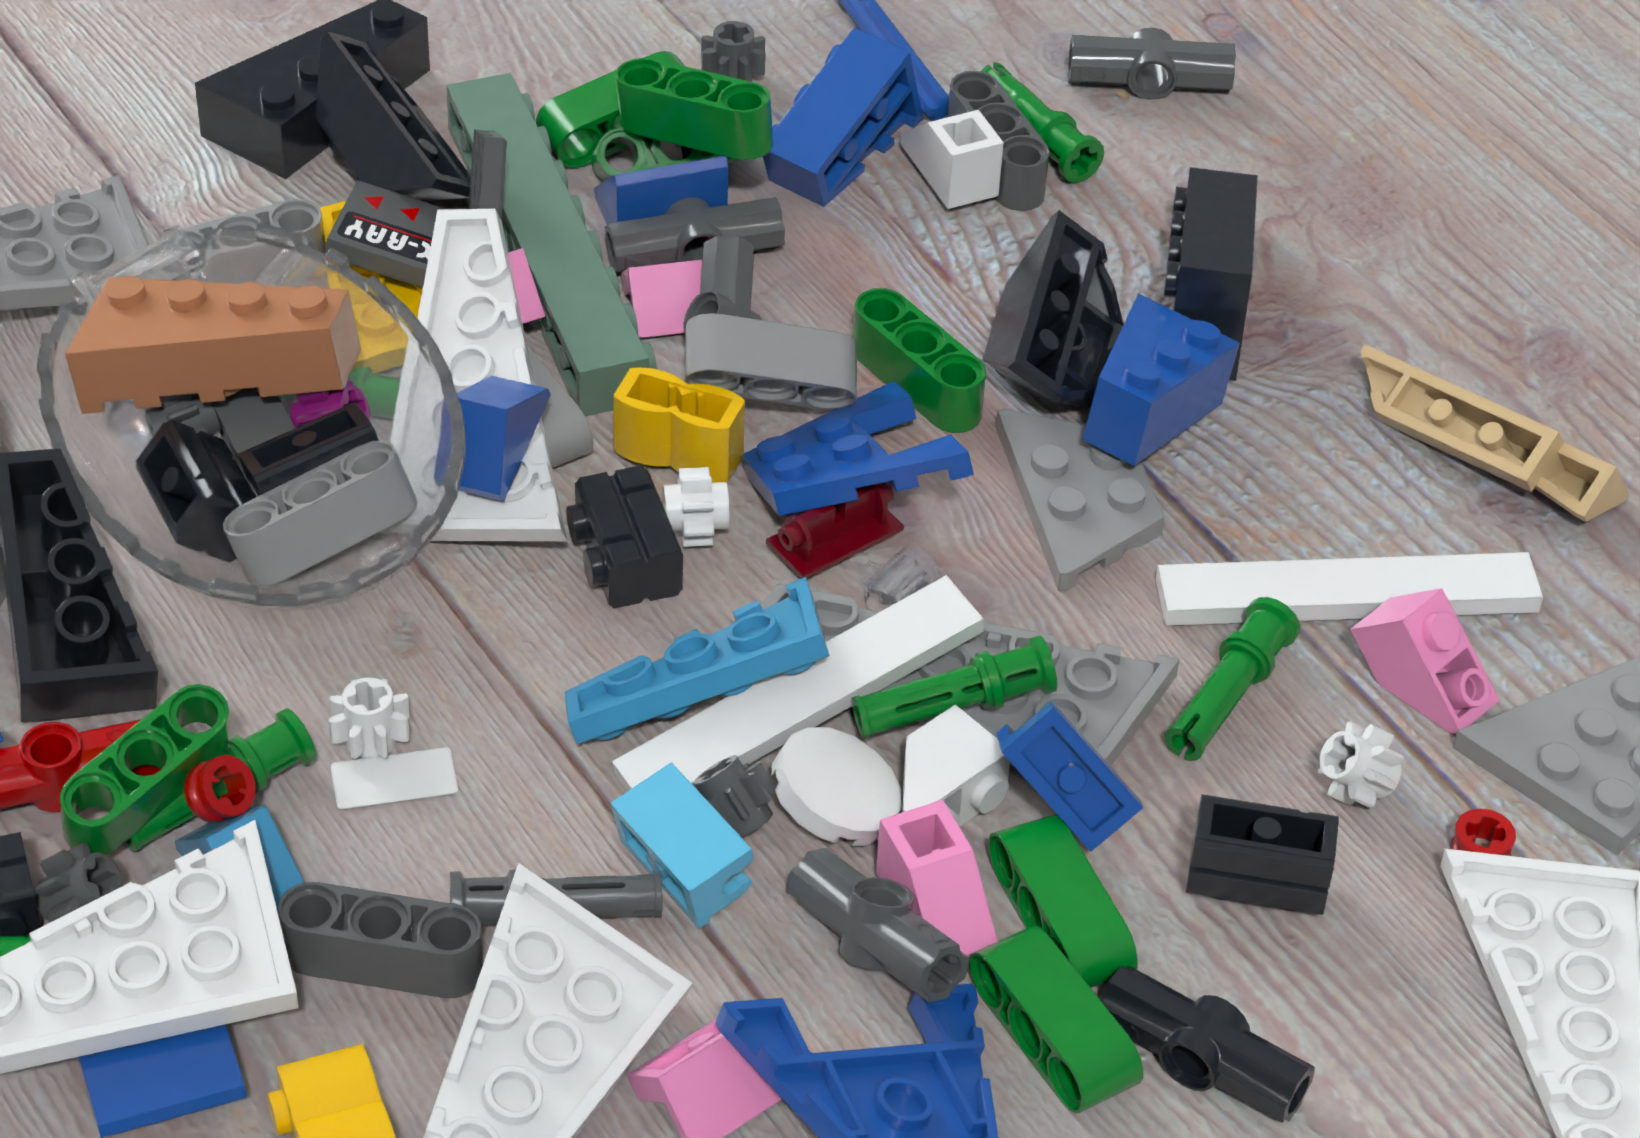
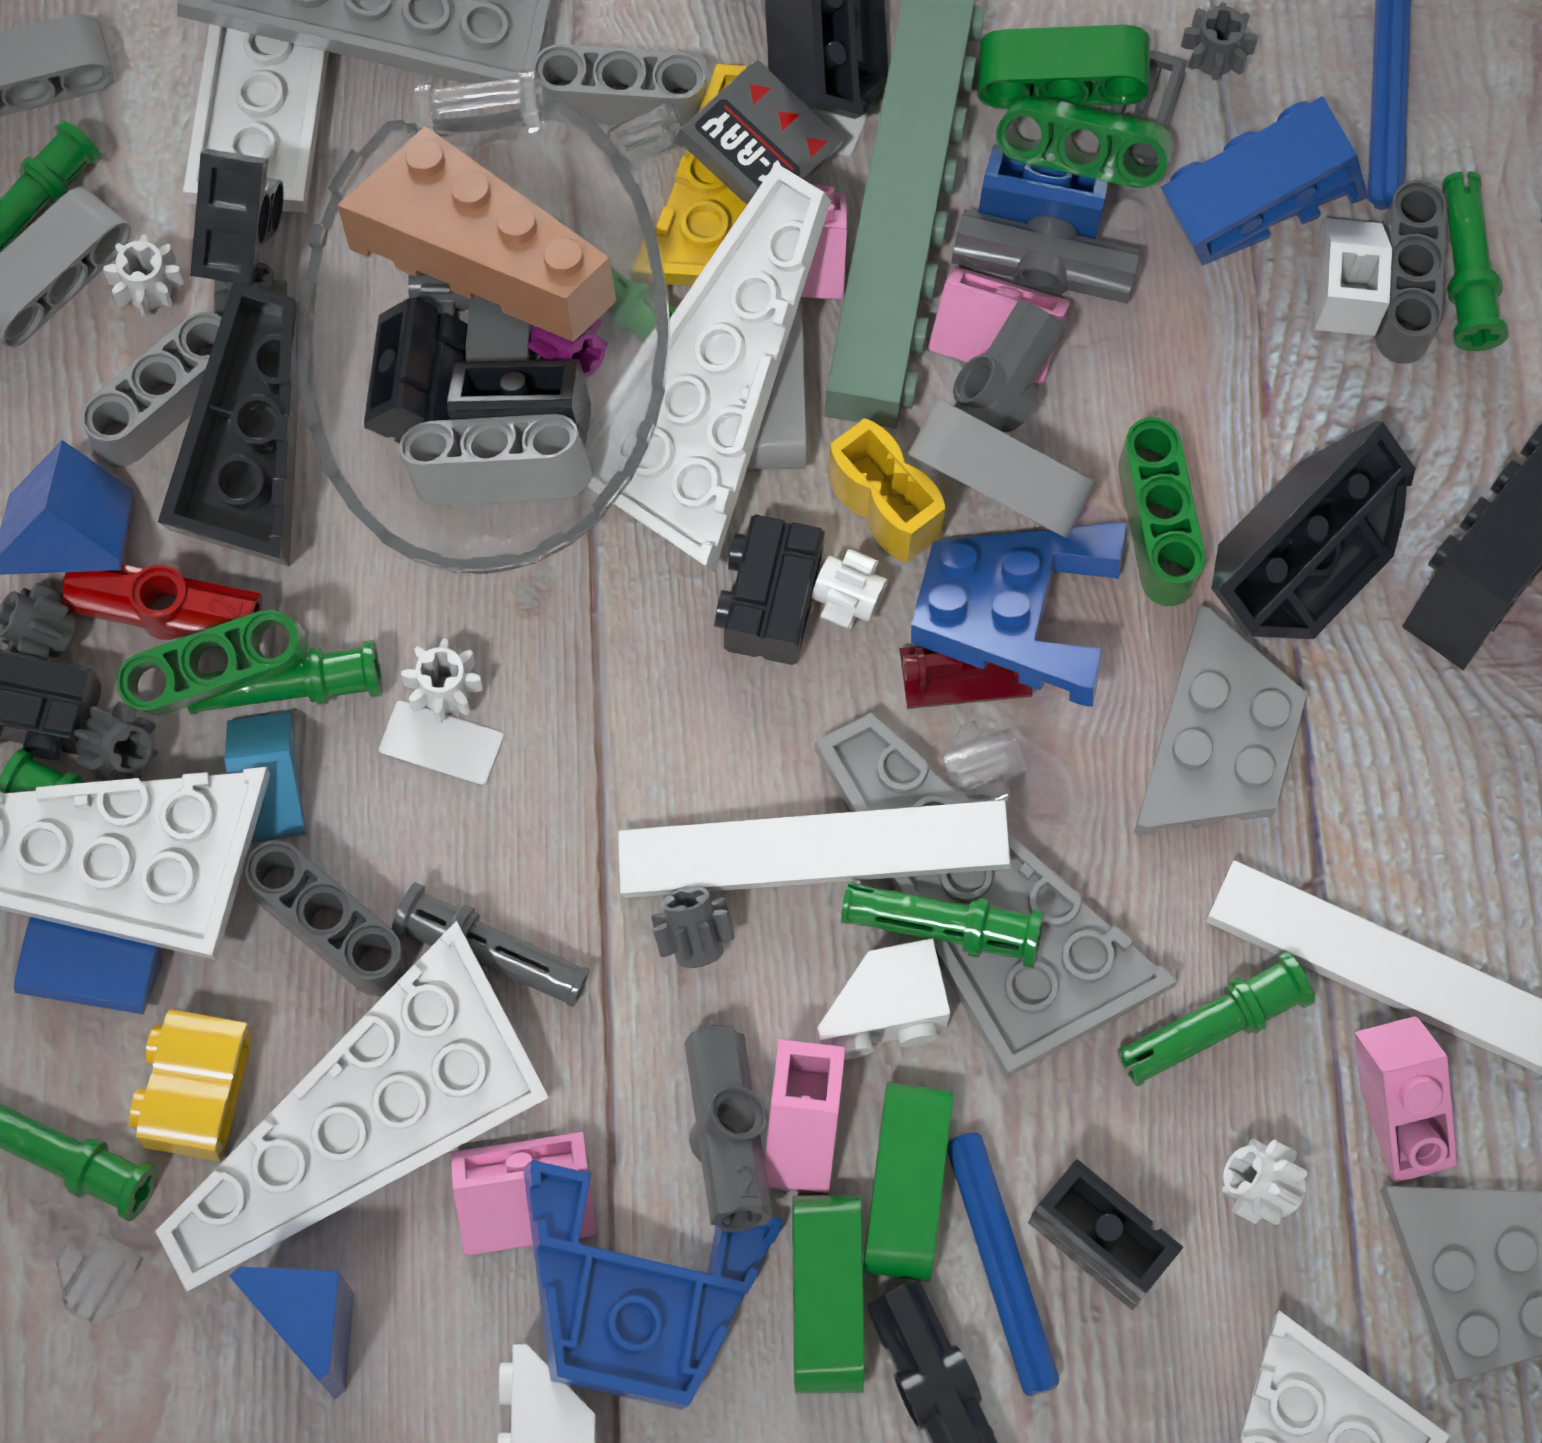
camera: 30 degrees right, 25 degrees up
(200, 794) = (282, 720): red bush -> none
(487, 170) = (862, 131): dark grey tile -> none
(498, 429) = (697, 436): blue slope -> none
(685, 841) = (618, 954): medium azure hinge -> none
(694, 108) = (1106, 160): green beam -> none
(701, 666) = (769, 784): dark azure wing -> none
(835, 785) = (788, 959): white tile -> none
(1070, 775) = (970, 1075): blue panel -> none
(1157, 381) = (1359, 658): blue wedge -> none
(1196, 937) = (1002, 1264): none -> blue axle
(1484, 825) = (1326, 1291): red bush -> none

